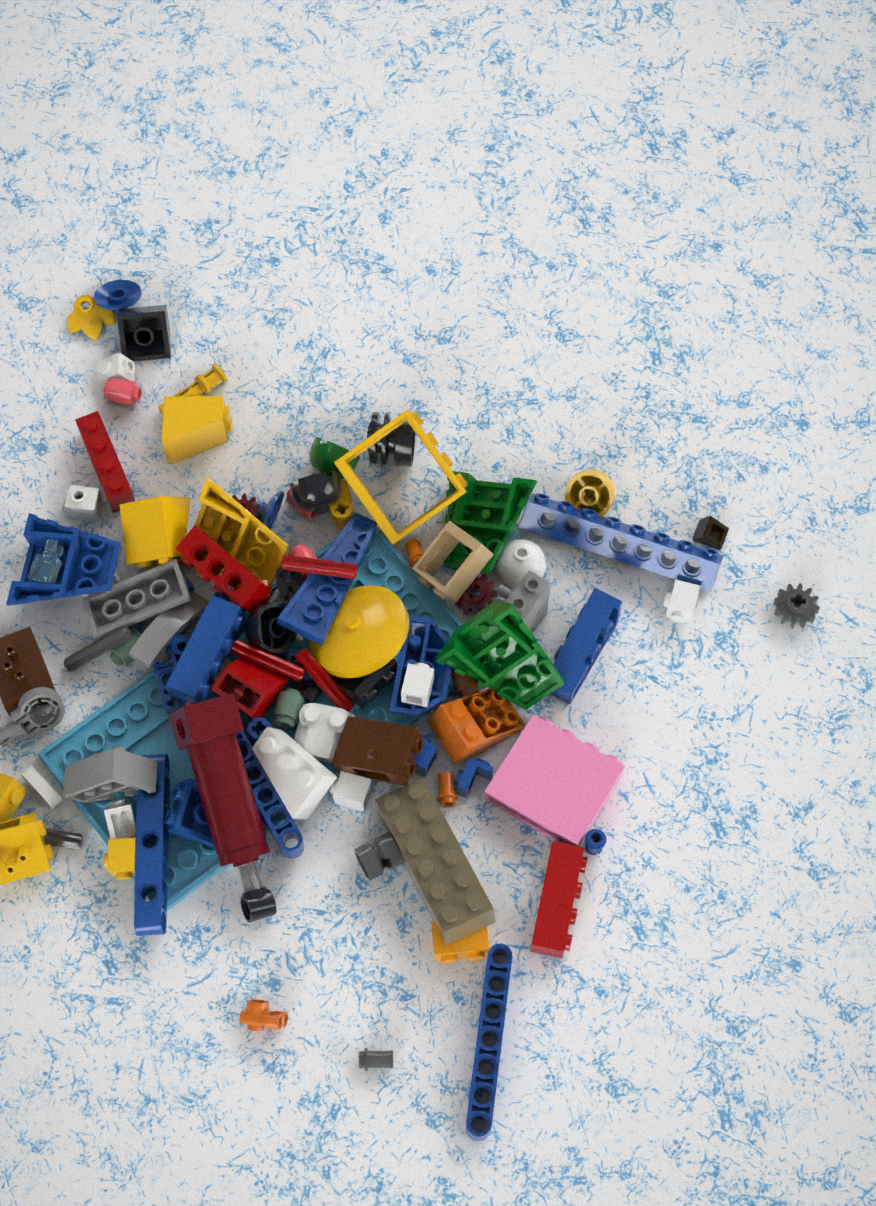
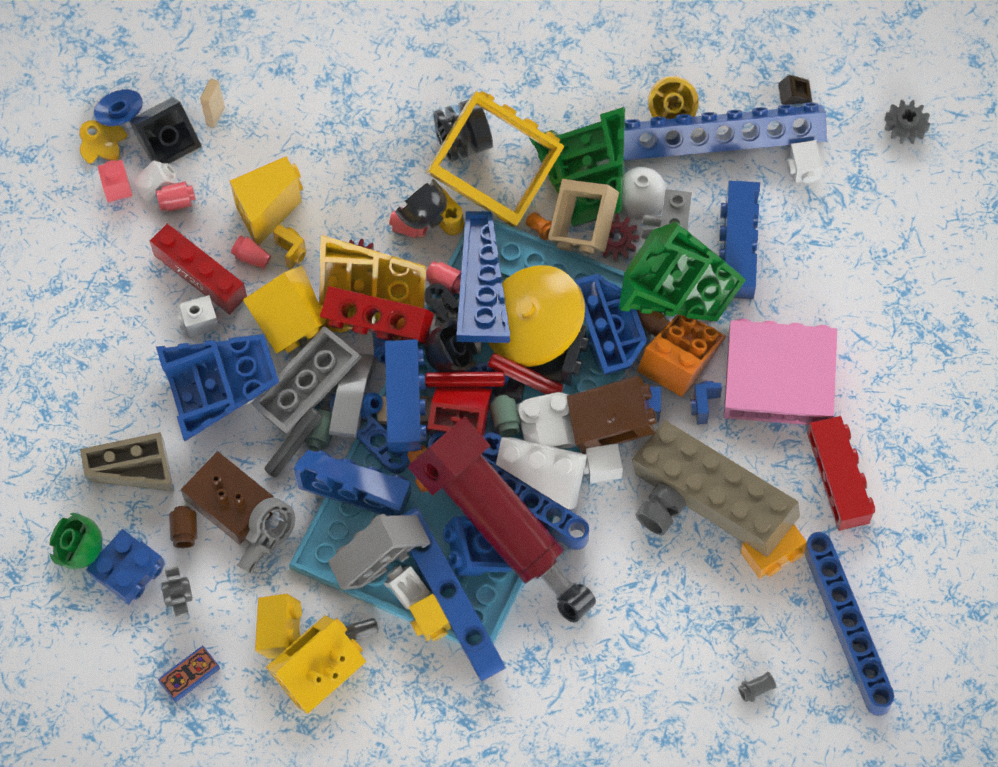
camera: 25 degrees left, 0 degrees up
(41, 787) = (311, 593): white beam -> none
(46, 566) = (204, 388): clear light blue plate -> none
(79, 355) = (114, 180): none -> coral brick
(124, 707) = (352, 484): none -> blue wedge
(157, 467) = (248, 251): none -> coral cone
(194, 324) = (212, 102): none -> tan tile
(196, 472) = (291, 242): none -> yellow bracket
(202, 384) = (248, 158): yellow pin -> none
(257, 1016) = (630, 699): orange plate -> none
(270, 510) = (385, 243): blue dish -> none
(319, 566) = (466, 272): red axle -> none
(324, 455) = (410, 173): green cylinder -> none
(417, 684) = (620, 336): white brick -> none
(447, 796) = (687, 422): orange pin -> none
(597, 836) = (846, 406): blue pin -> none

